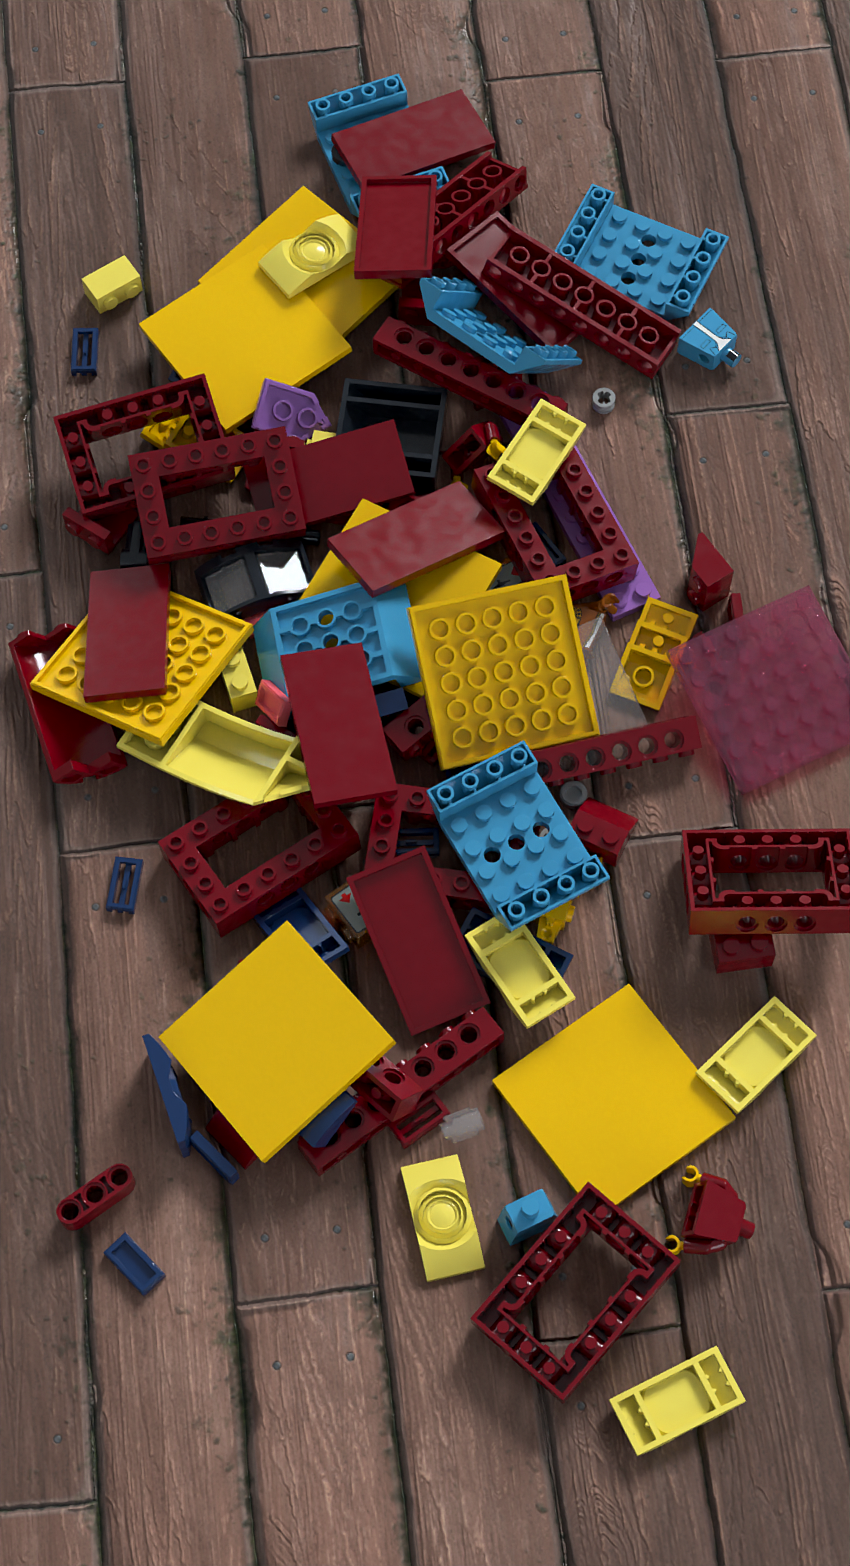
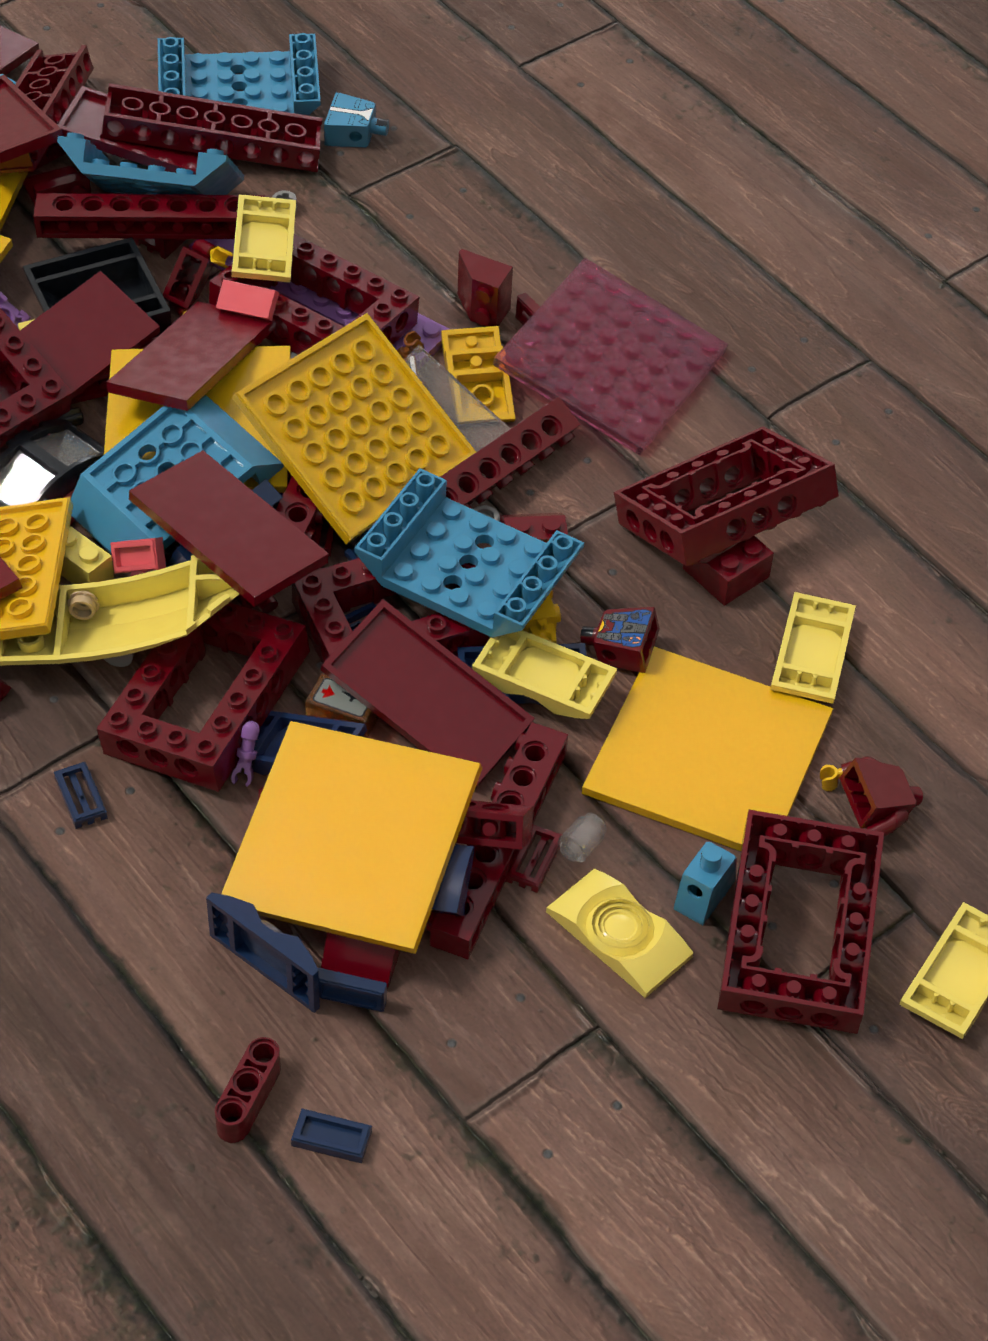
camera: 35 degrees left, 15 degrees down
(210, 725) = (82, 605): none -> tan plate
(256, 918) = (246, 752): none -> medium lavender piece
(490, 505) = (247, 300): none -> coral tile
(608, 966) = (624, 637): none -> torso

